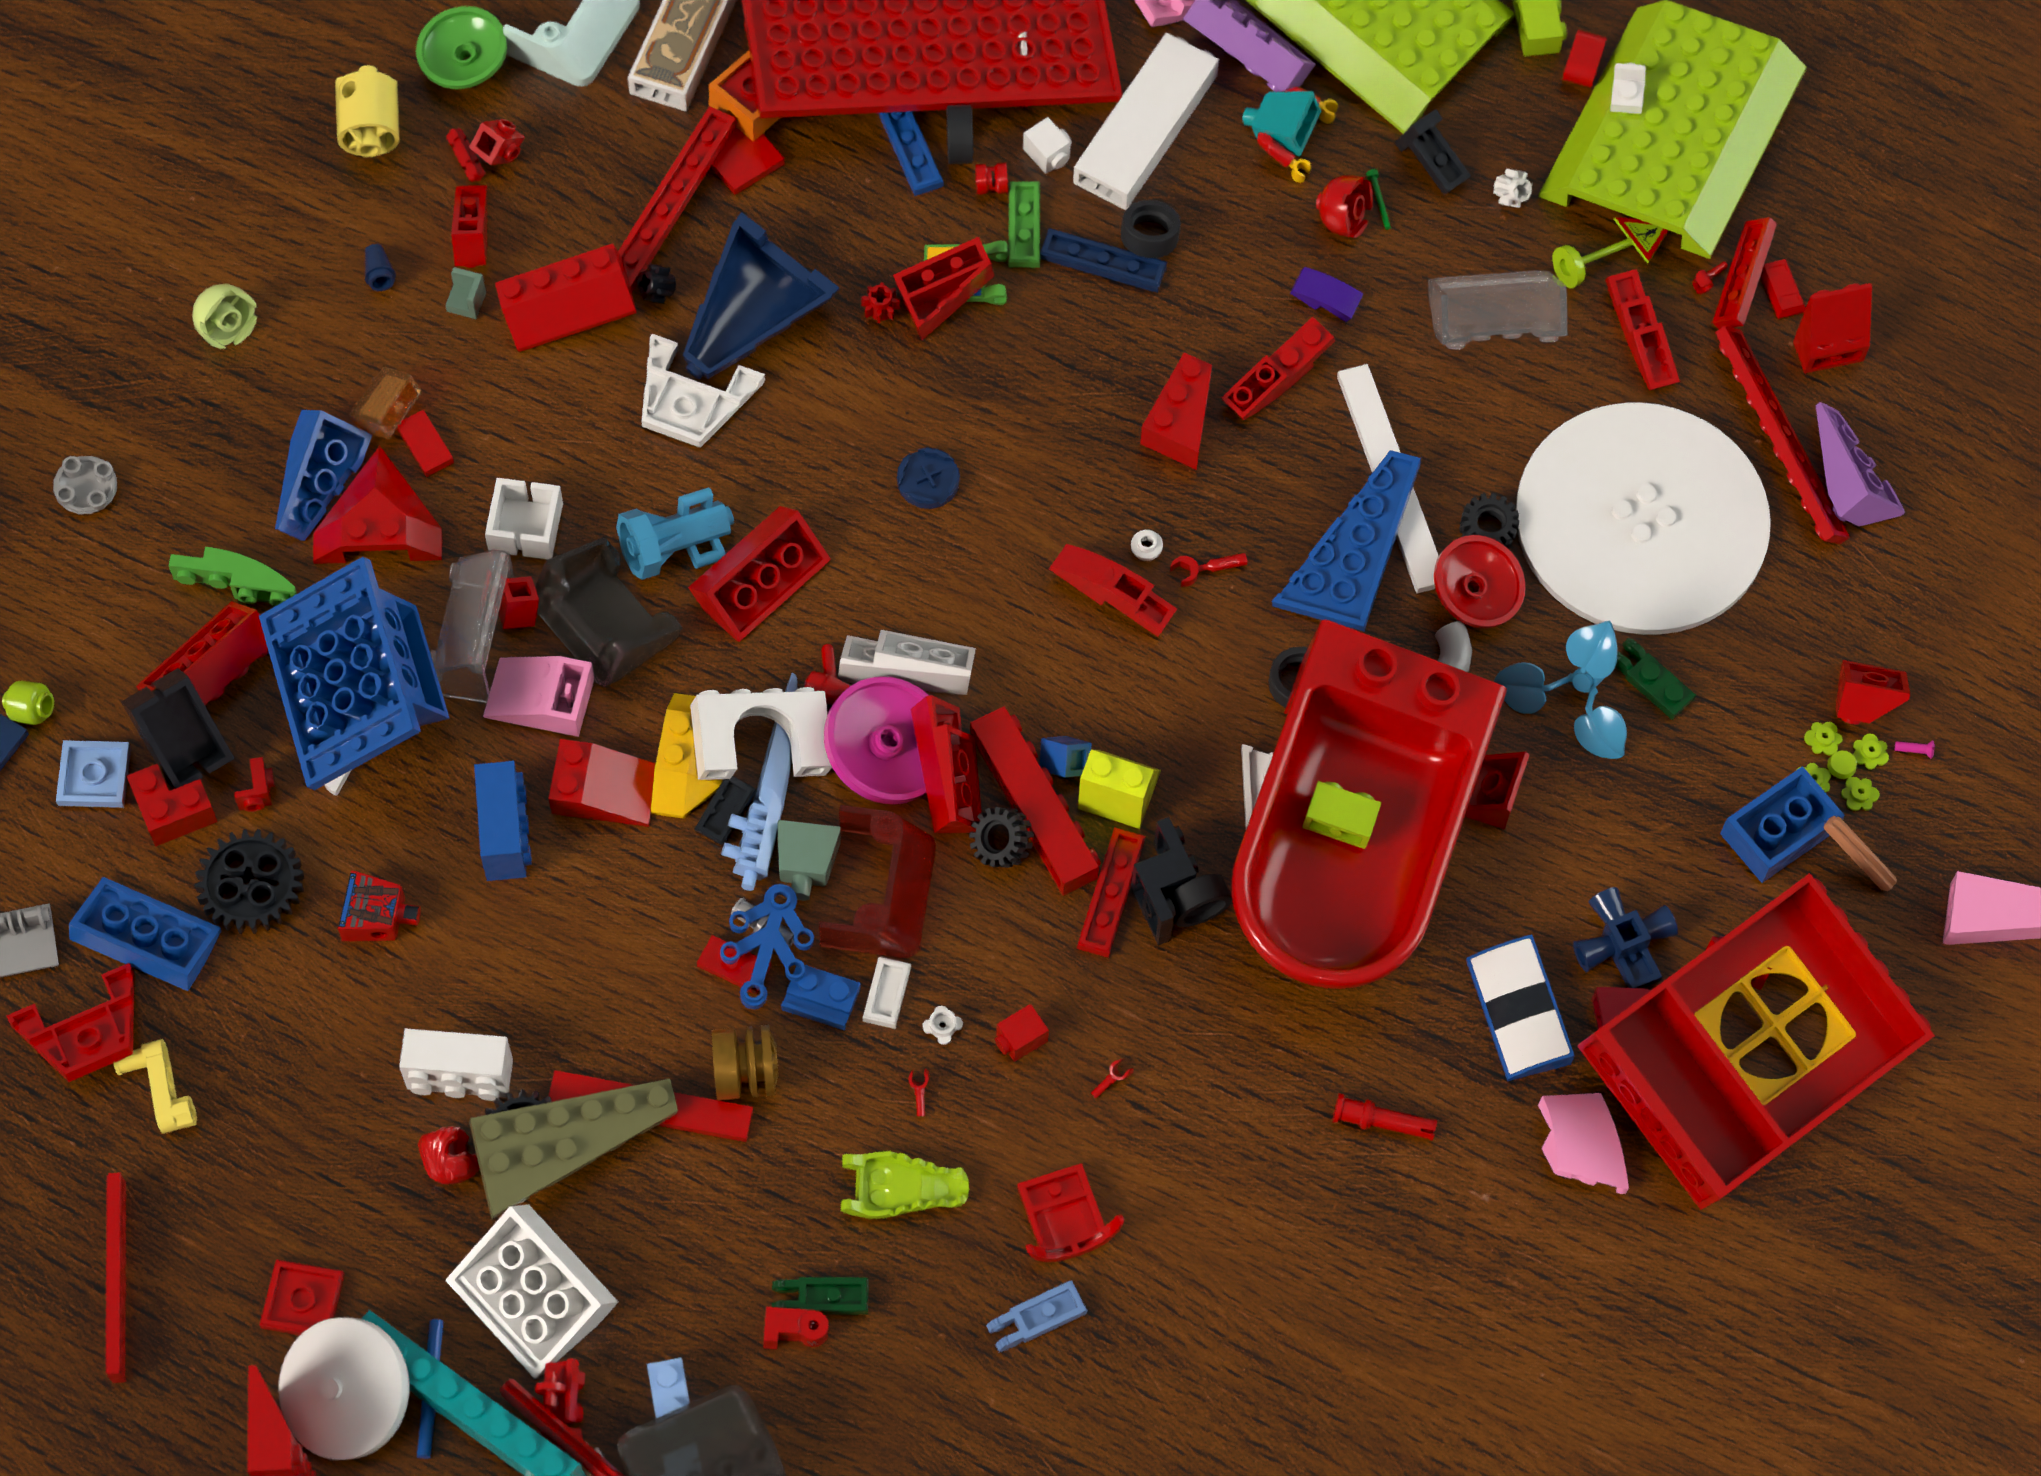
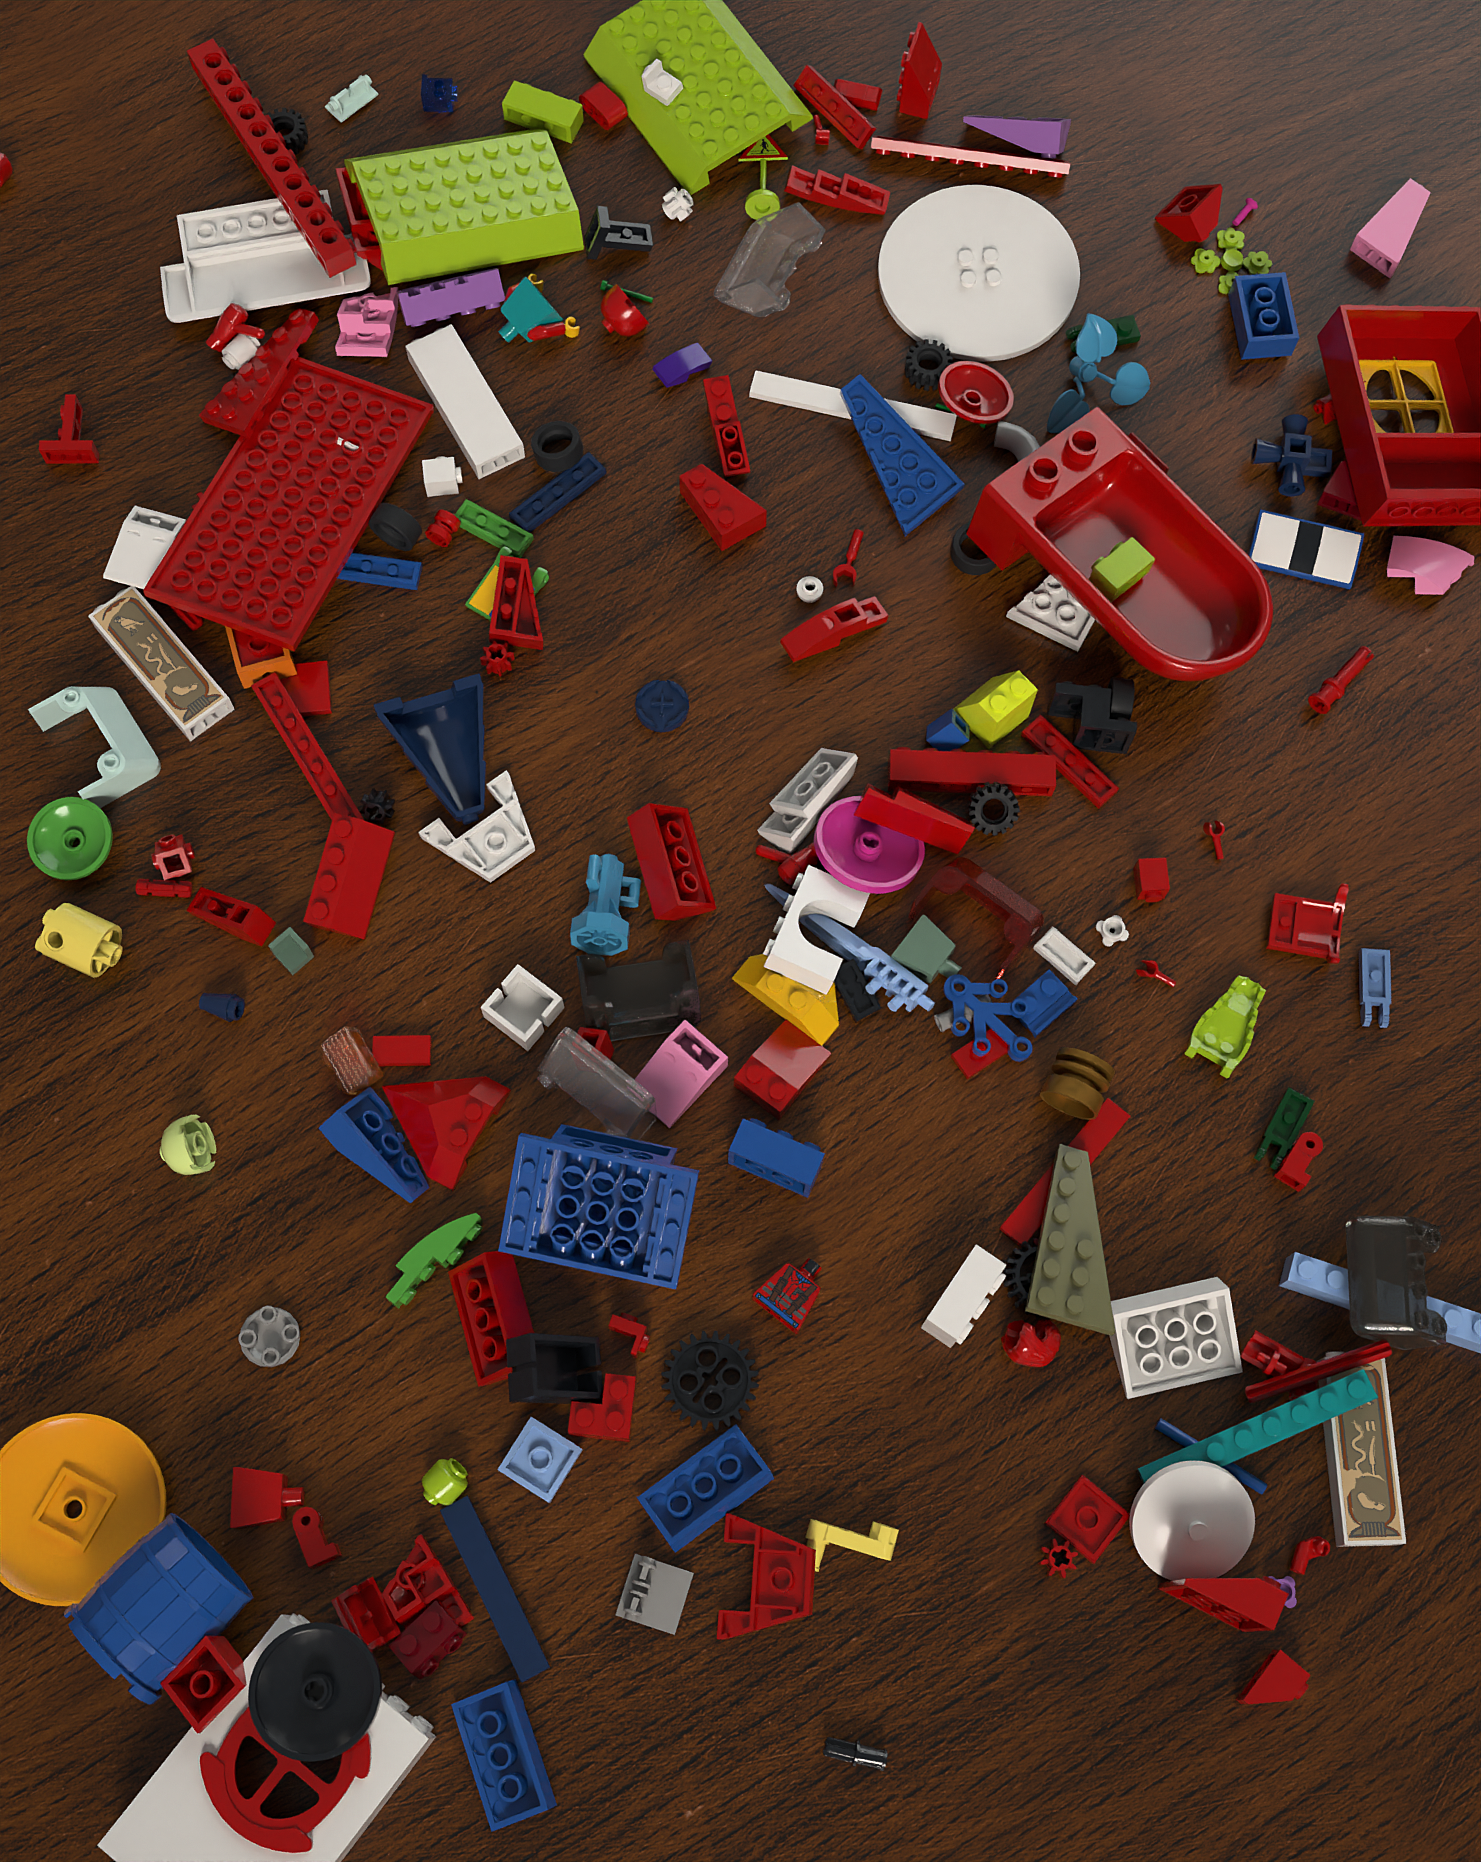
camera: 60 degrees left, 5 degrees up
(116, 1278) = (998, 1660): red tile -> none
(251, 1291) = (1049, 1560): none -> red gear
(1860, 853) = (1312, 281): nougat axle -> none

